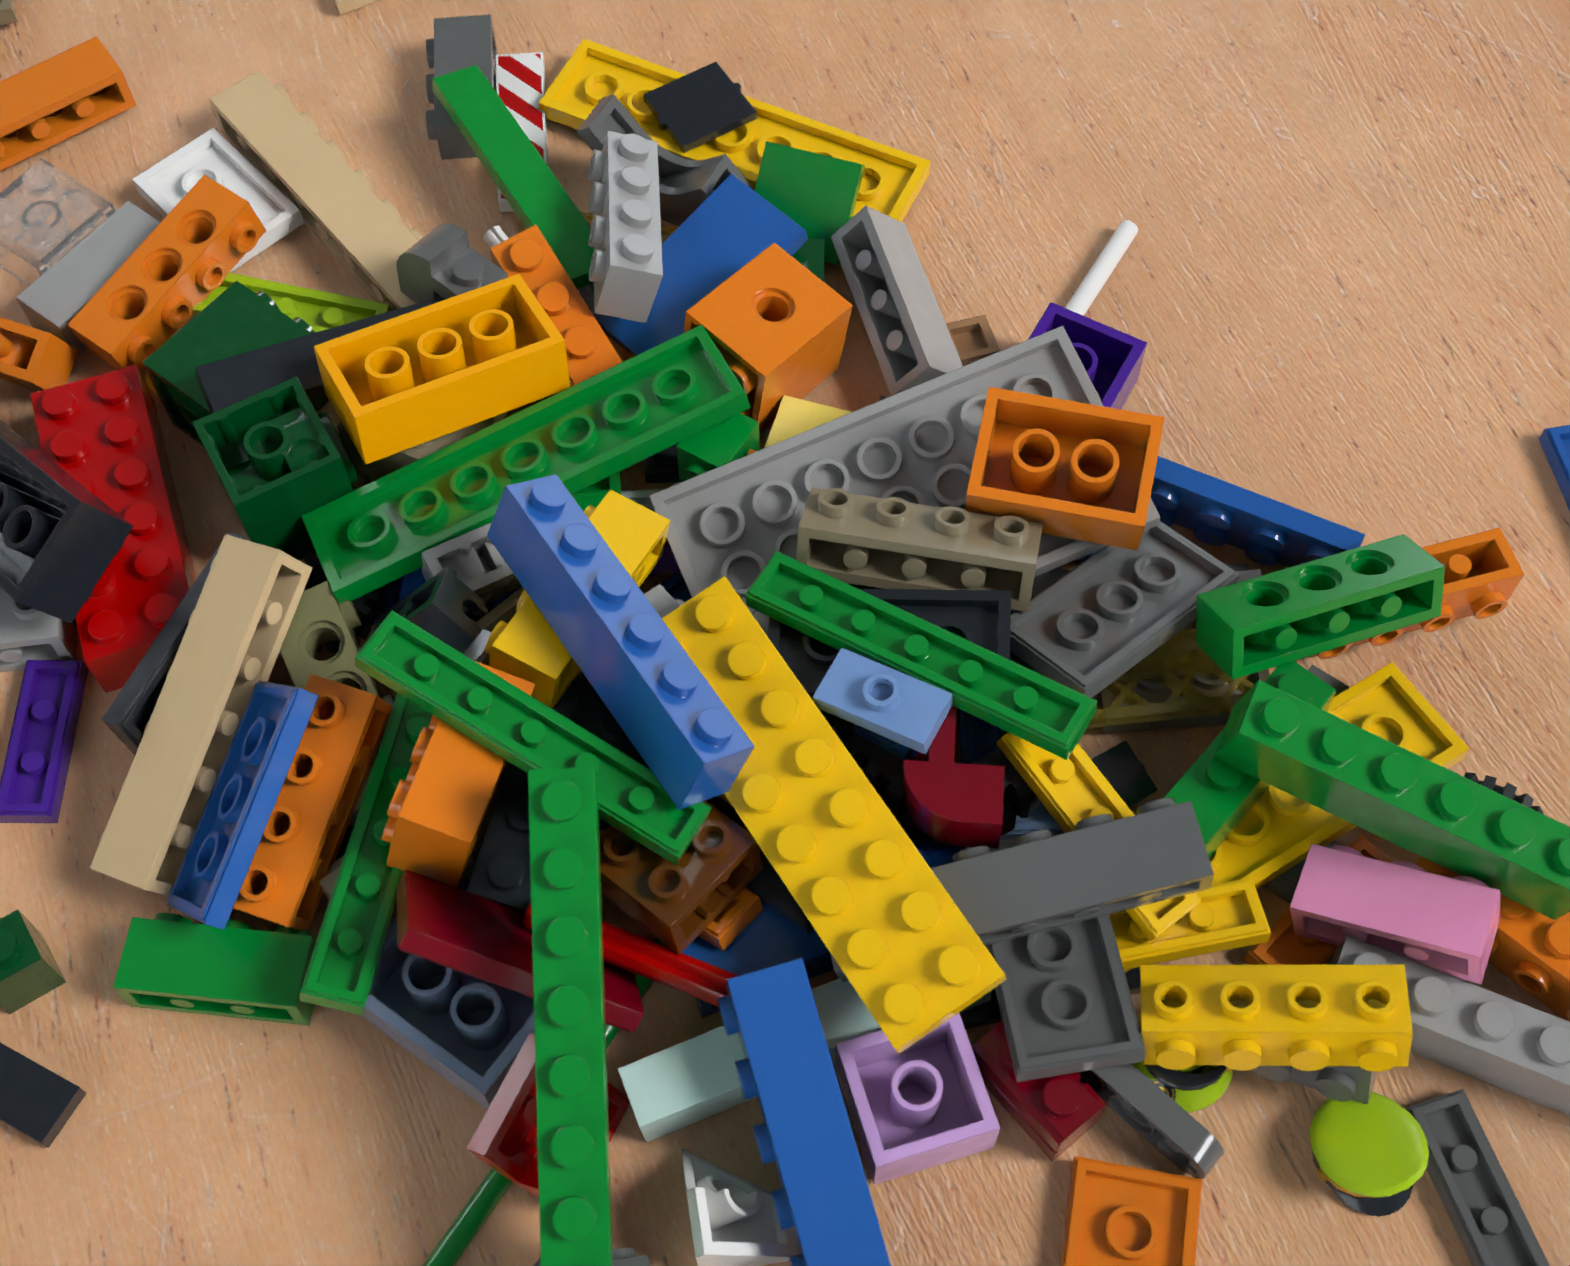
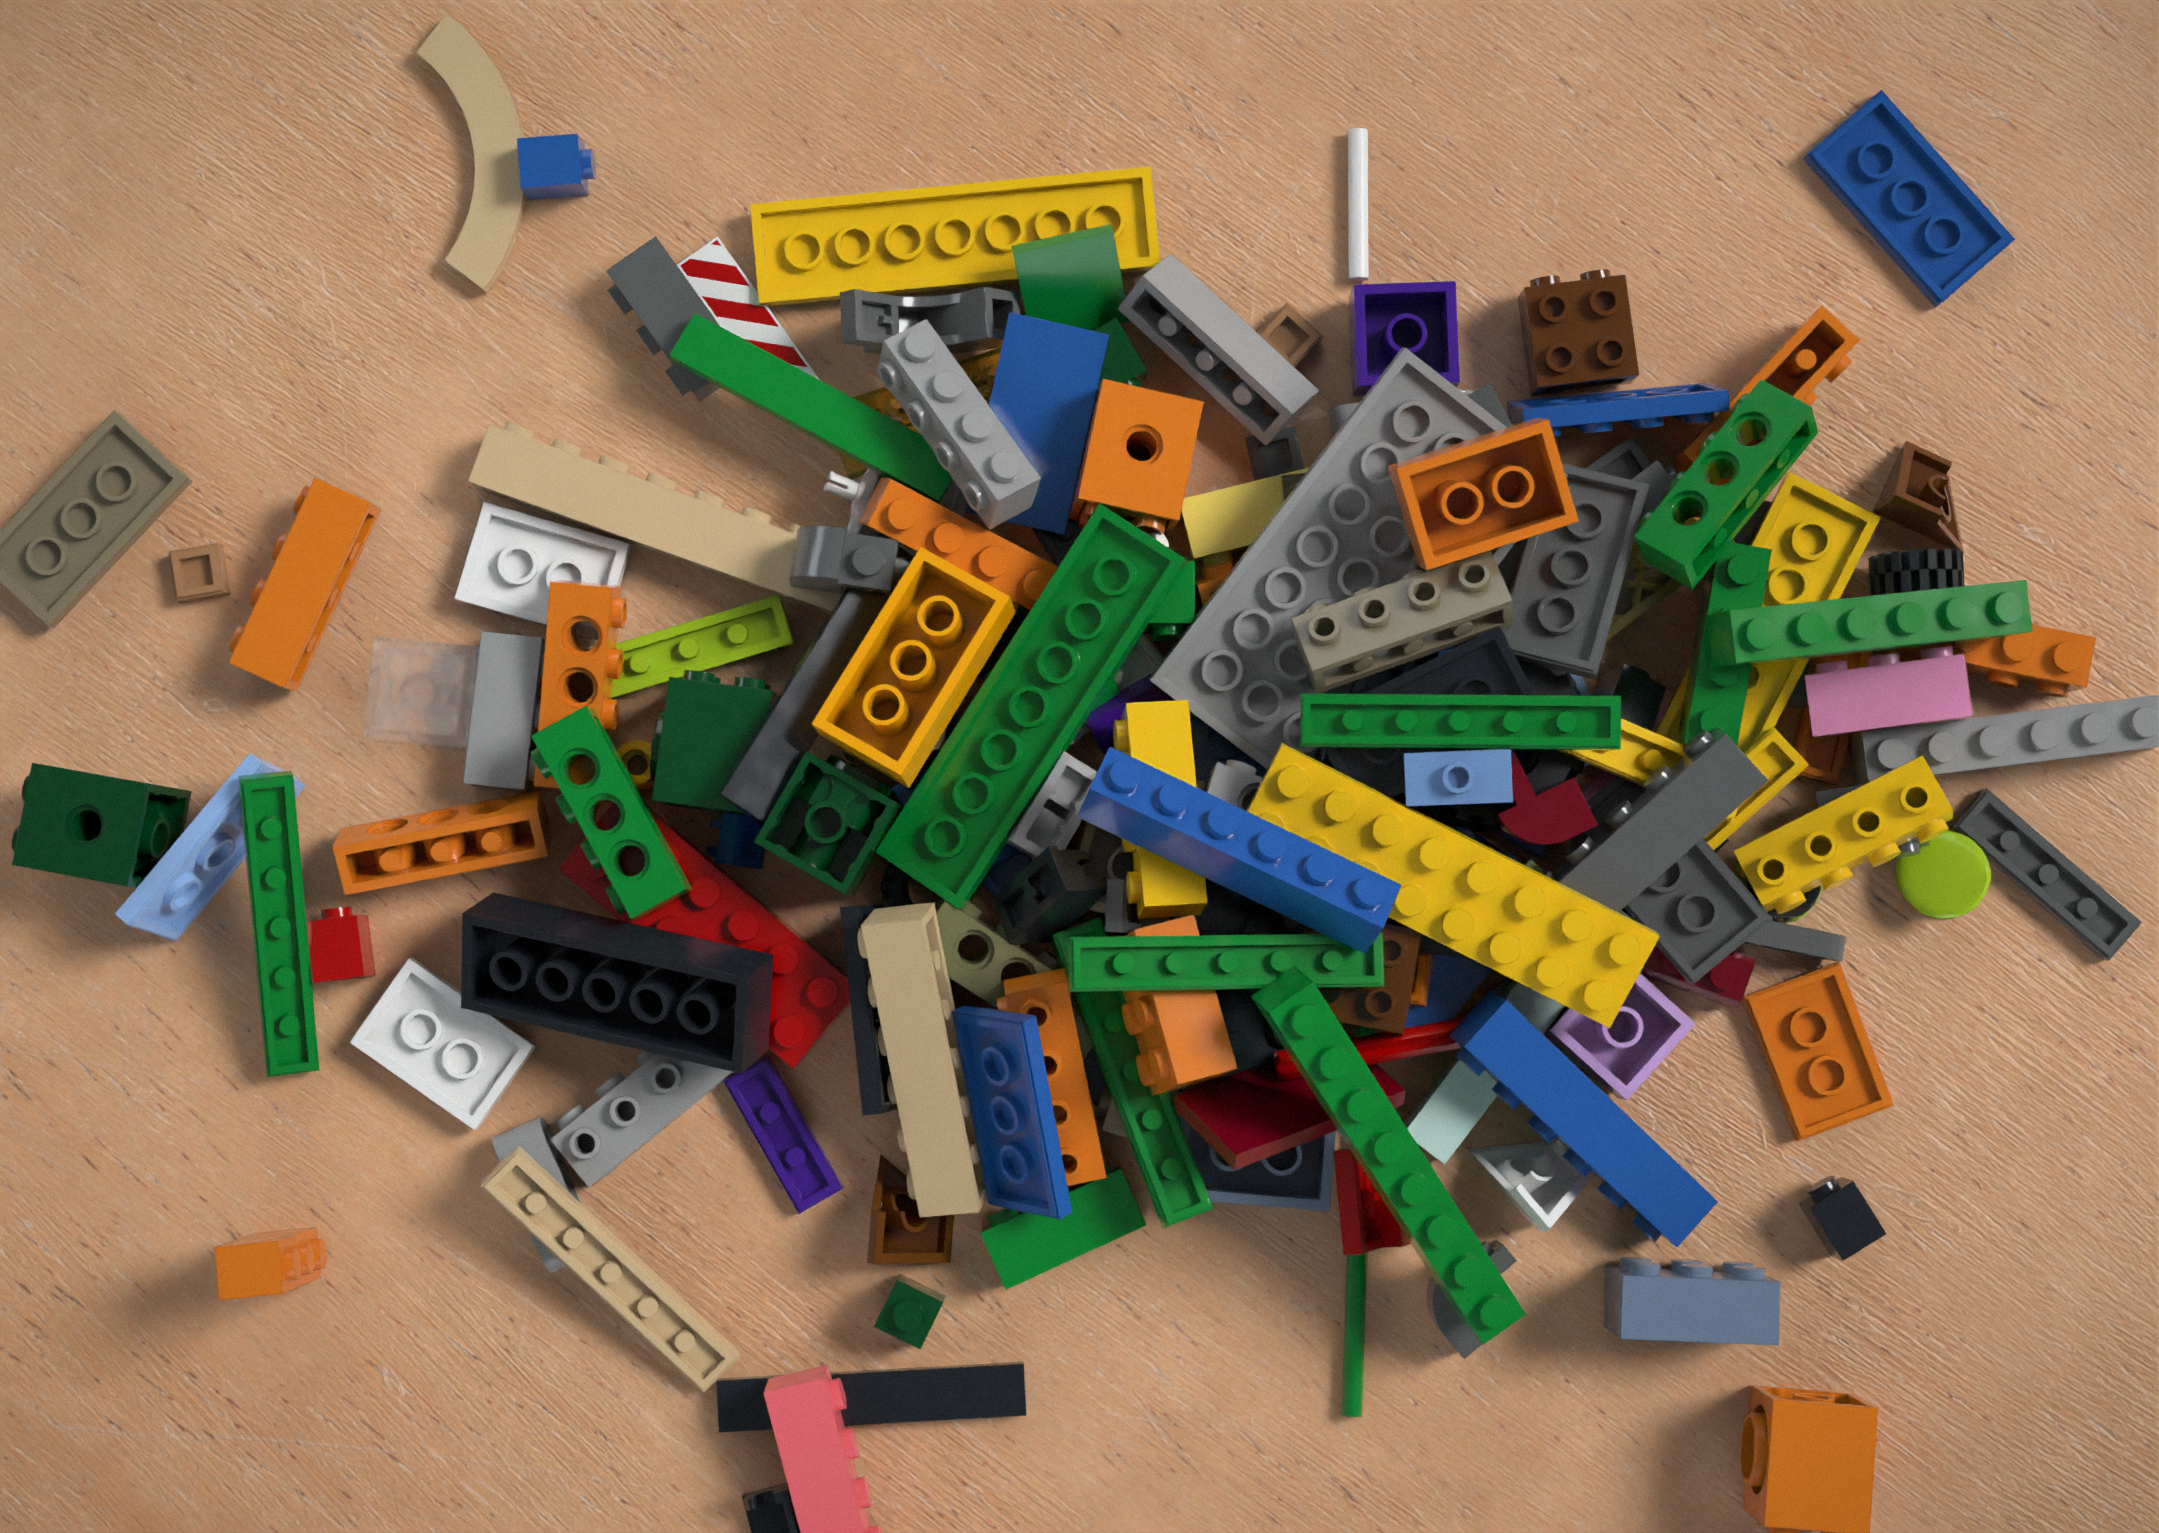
camera: 30 degrees left, 25 degrees up
(58, 879) = (897, 1229): none -> reddish brown slope
(100, 359) = (662, 876): none -> green brick
(197, 476) = (737, 842): none -> blue tile
(700, 106) = (910, 225): black piece -> none
(1246, 441) = (1578, 333): none -> reddish brown brick
(1523, 756) = (1921, 496): none -> reddish brown slope

